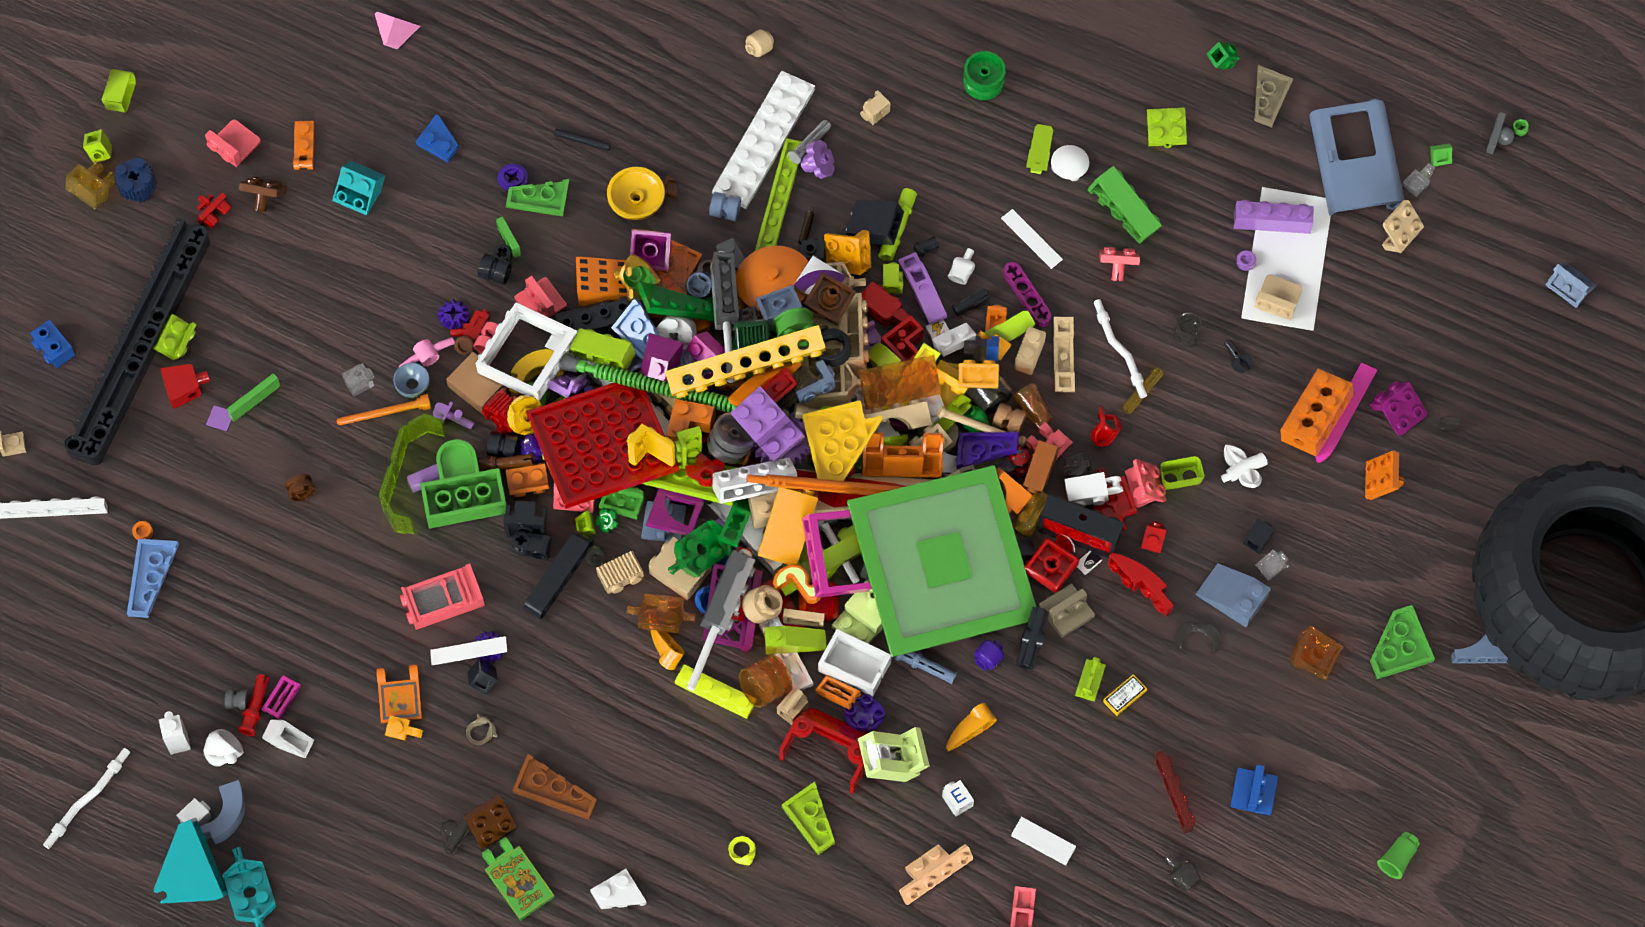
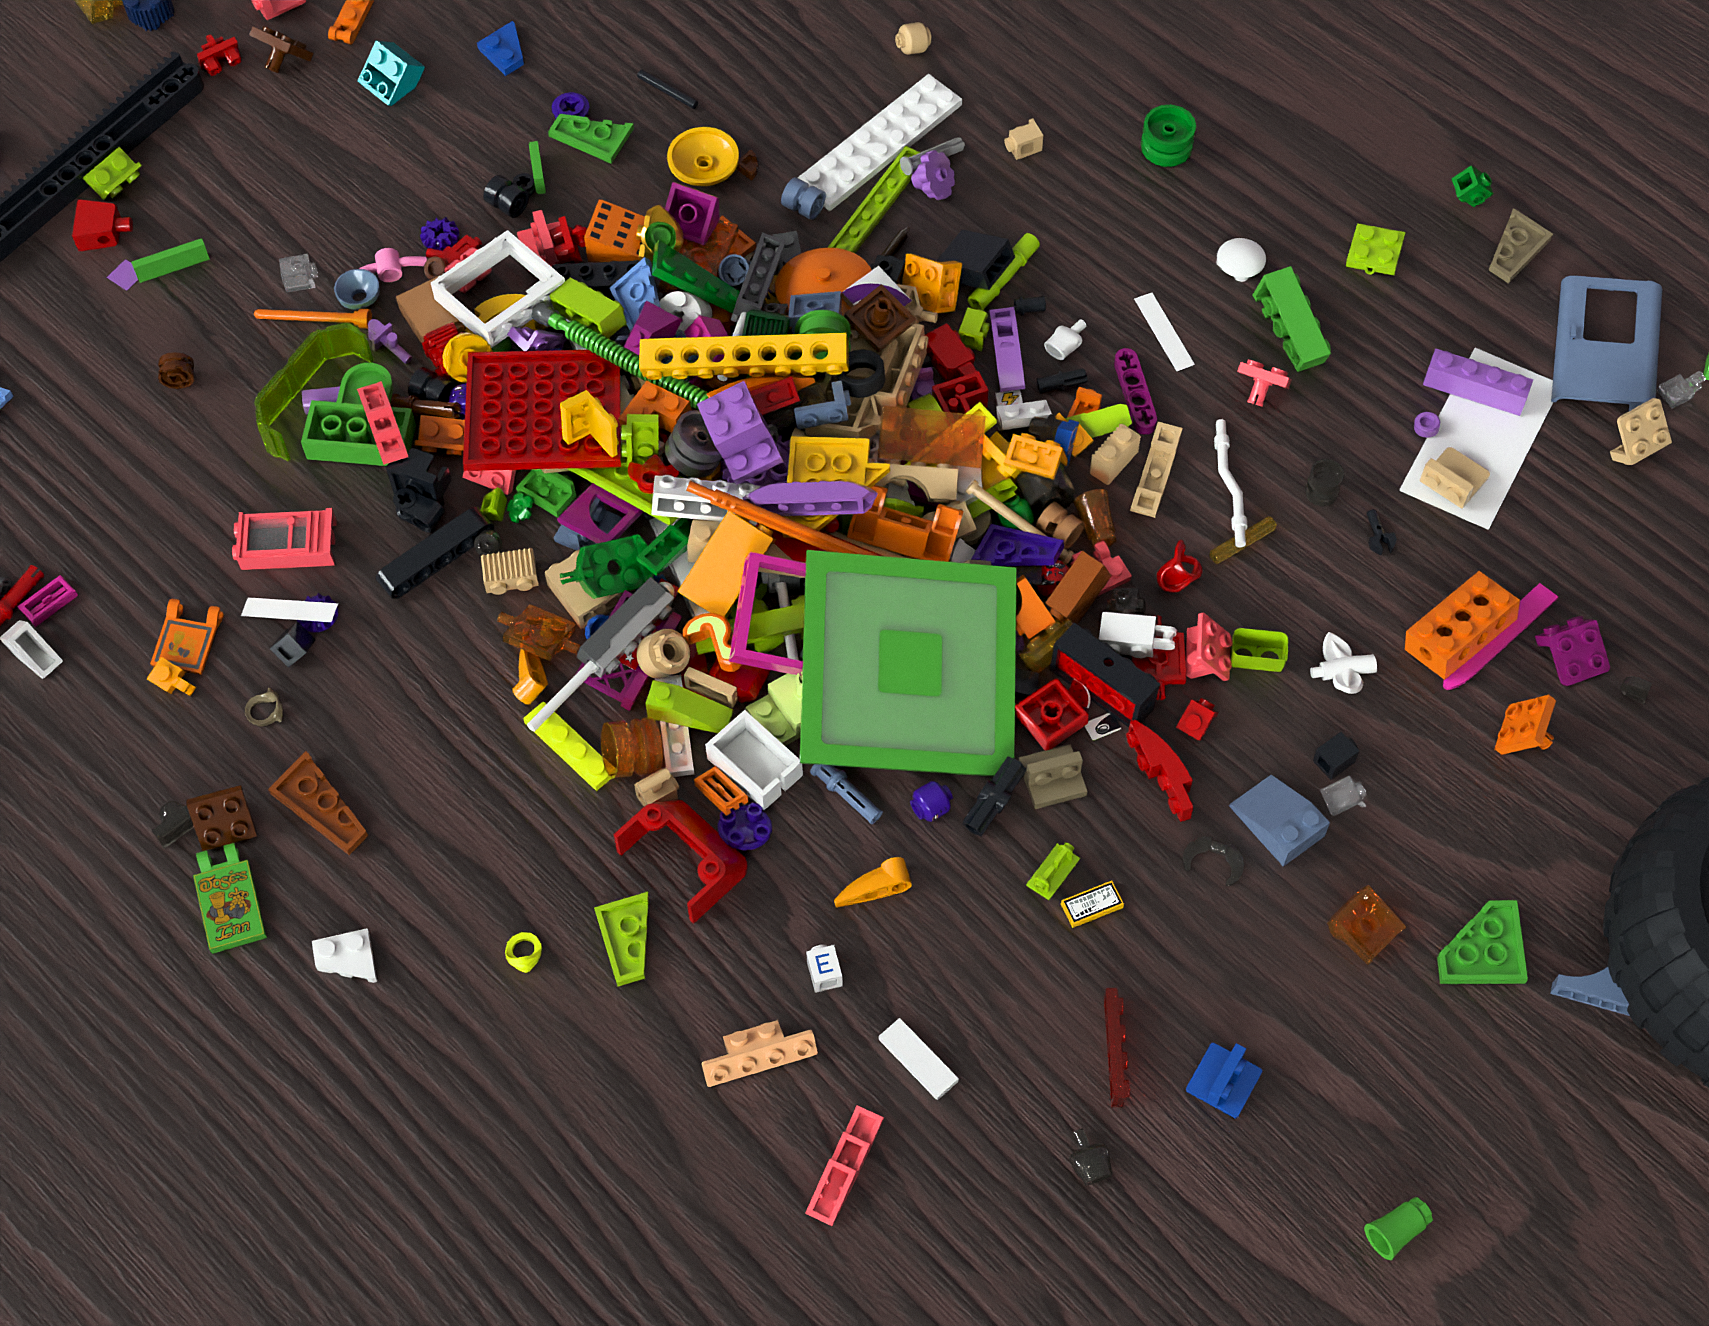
camera: 20 degrees right, 5 degrees down
(484, 486) = (382, 423): none -> coral slope
(563, 302) = (572, 239): none -> red hips
(835, 459) = (813, 498): none -> medium lavender brick
(894, 755) = (756, 886): yellowish green brick -> none
(1040, 147) = (1209, 235): lime piece -> none

